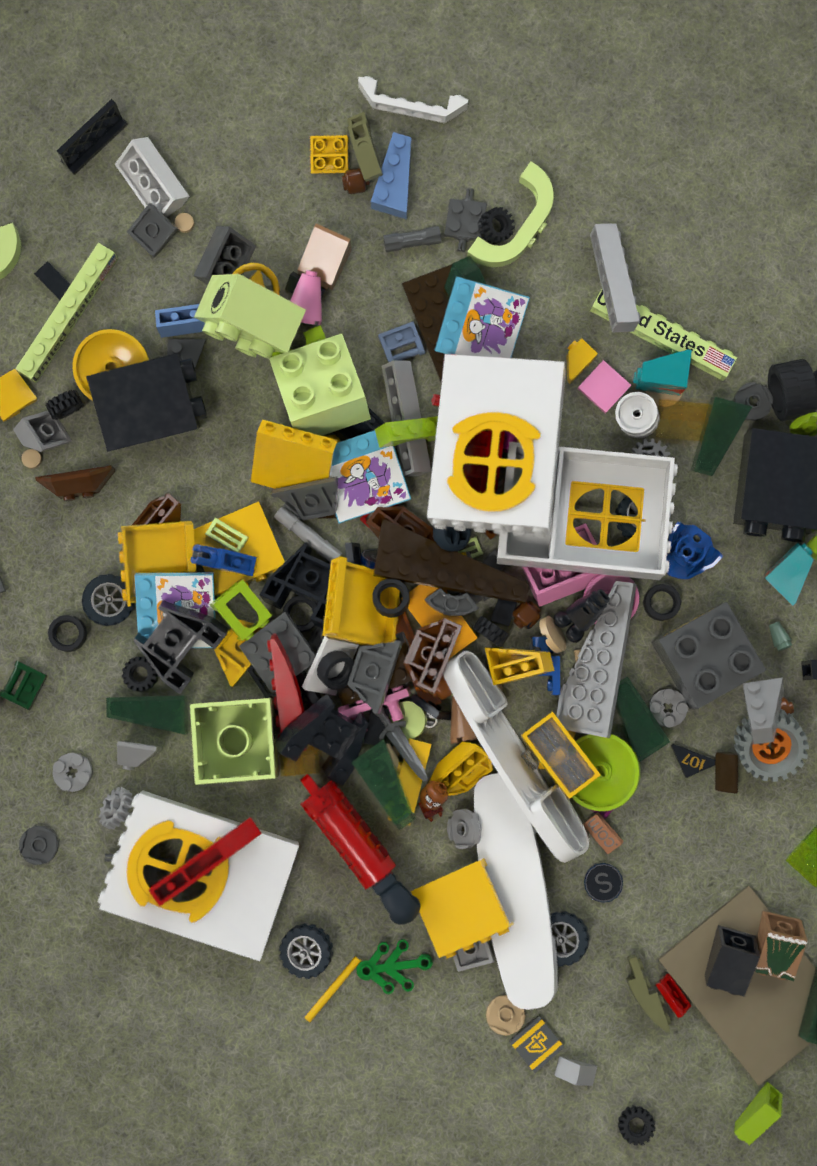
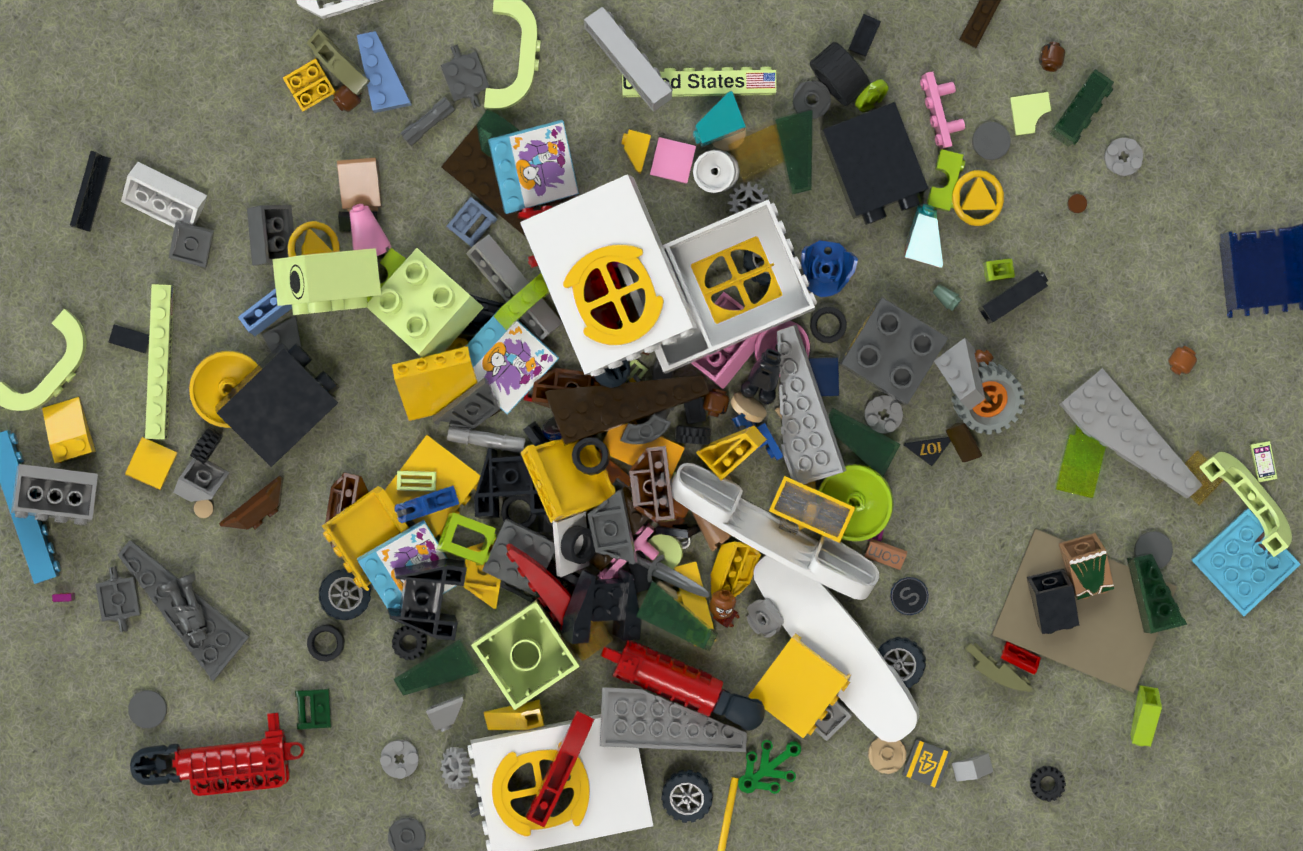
camera: 25 degrees left, 5 degrees up
(184, 222) = (215, 220): tan tile -> none
(199, 796) = (523, 718): none -> yellow slope
(309, 863) = (647, 721): none -> light grey wing
(504, 220) = (487, 72): black tyre -> none
(637, 645) = (826, 375): none -> dark blue tile

